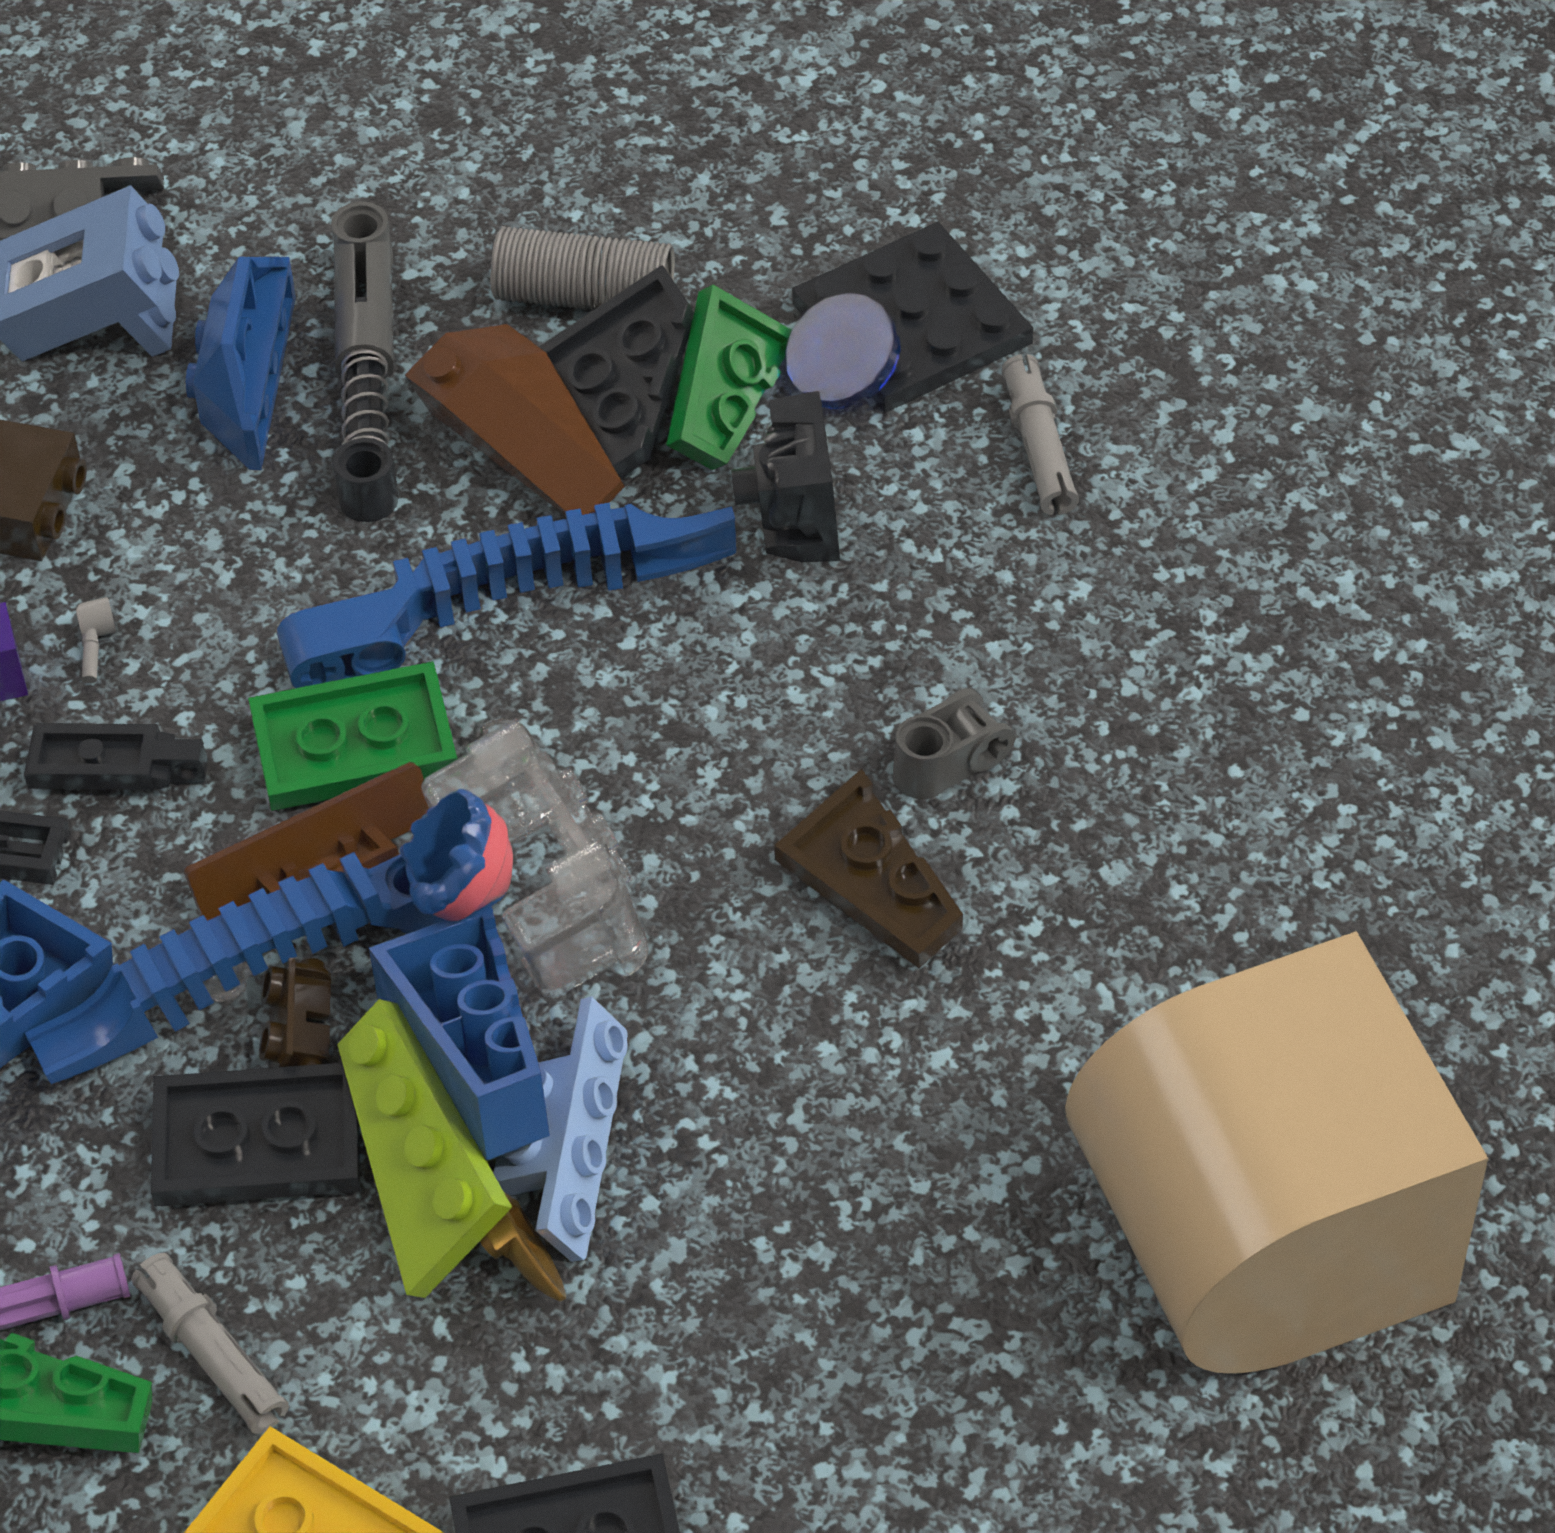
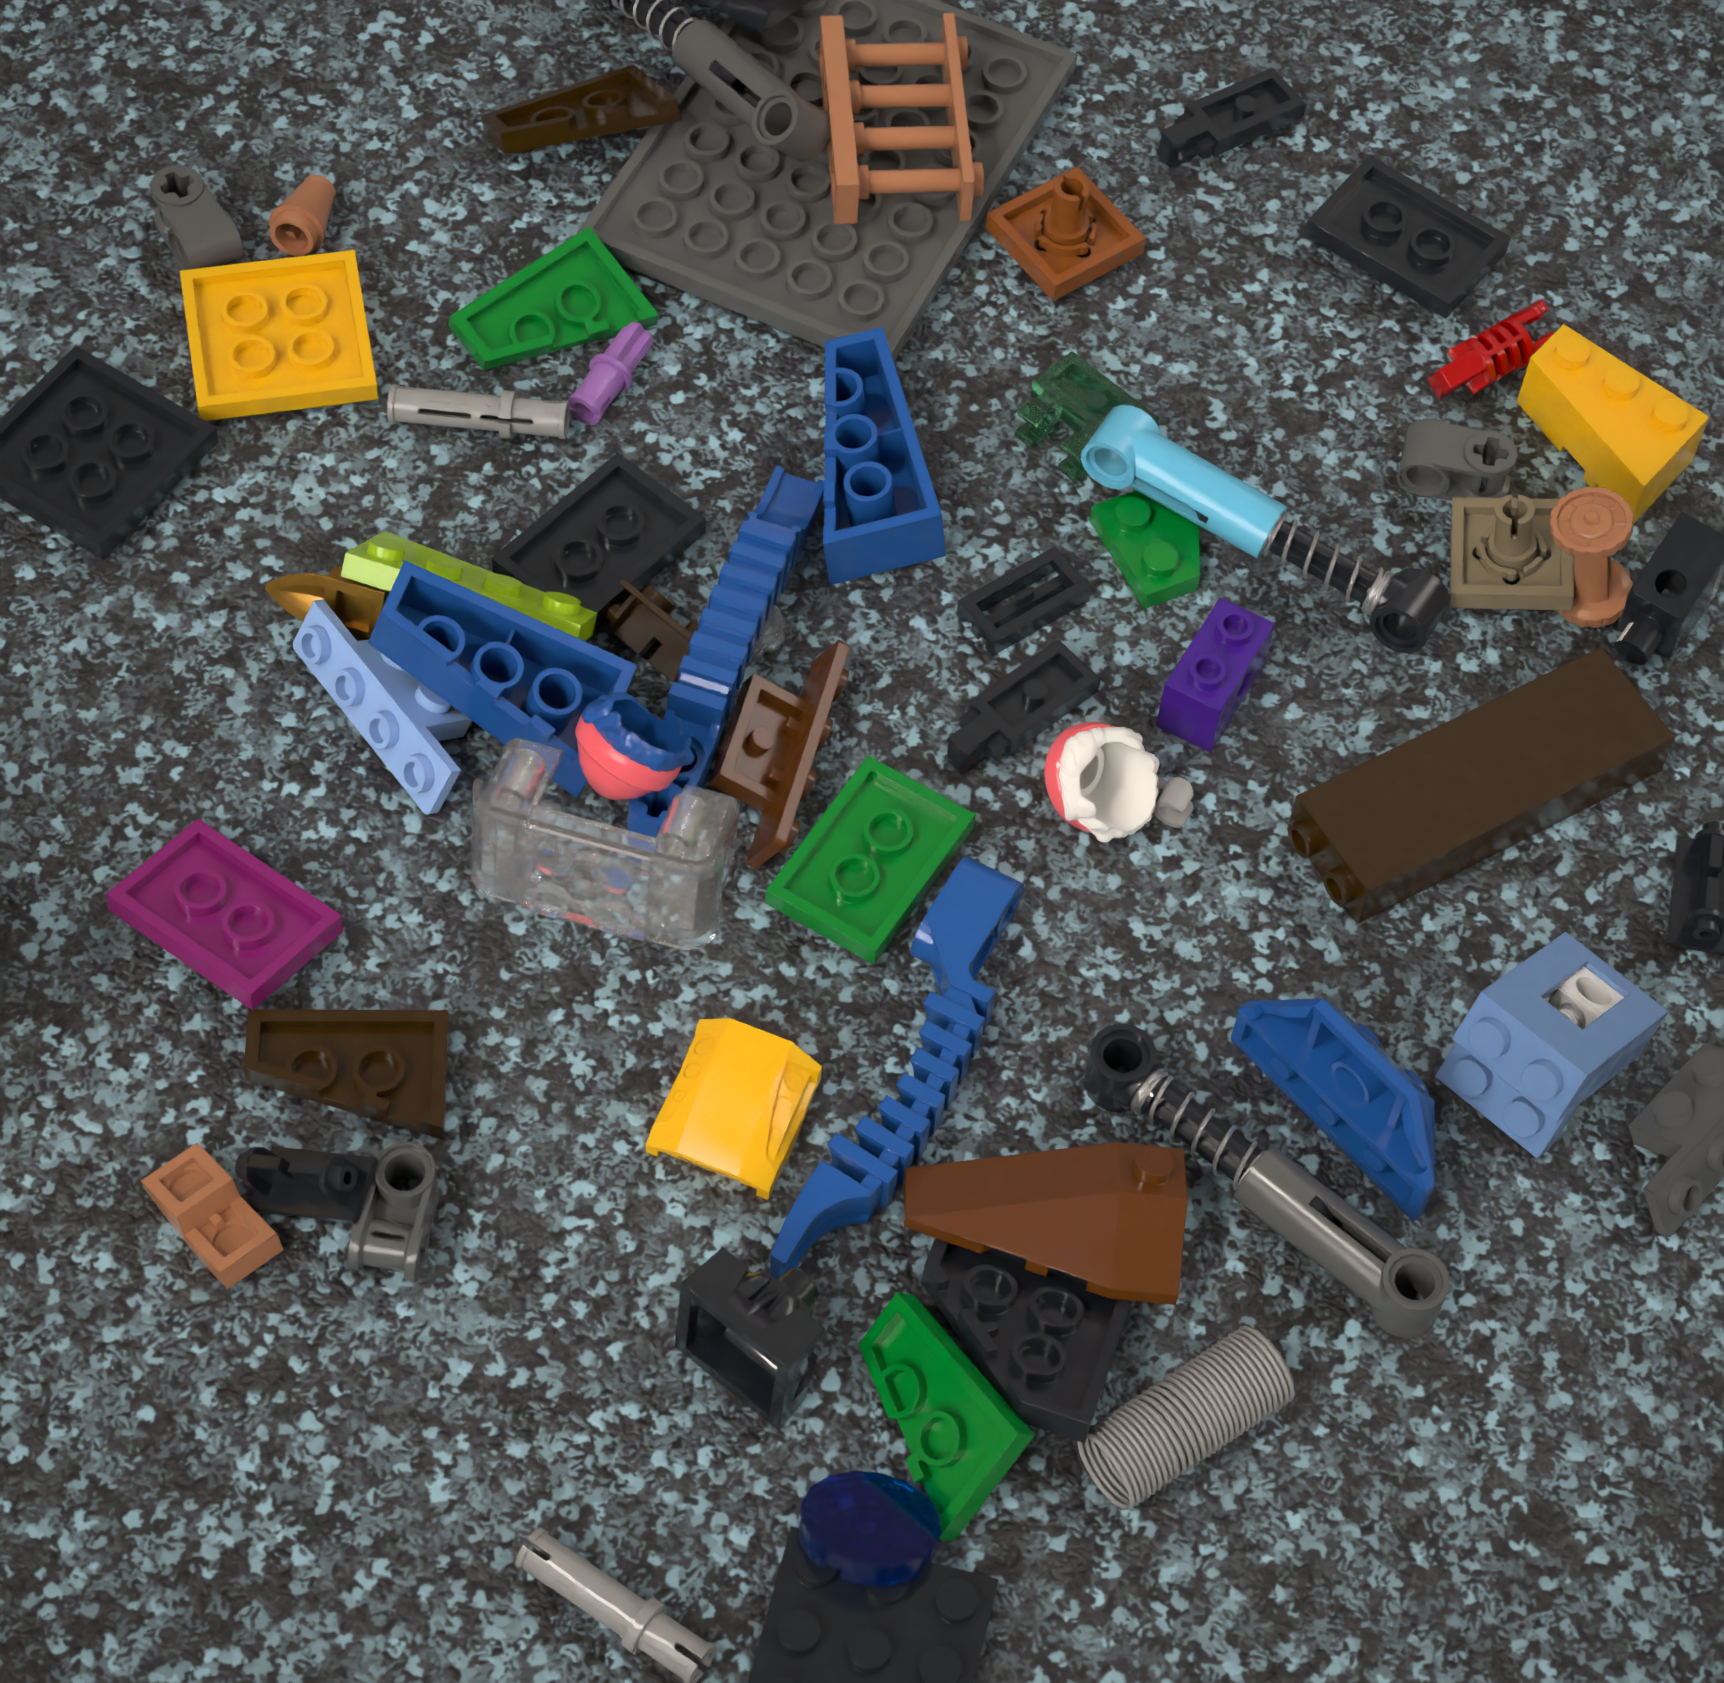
camera: 130 degrees right, 5 degrees up
(136, 653) = (1102, 779): none -> white hair
(647, 649) = (737, 1103): none -> yellow slope
(866, 1043) = (224, 913): none -> magenta plate
(990, 797) = (306, 1182): none -> black hinge
(1076, 849) = (212, 1215): none -> nougat slope

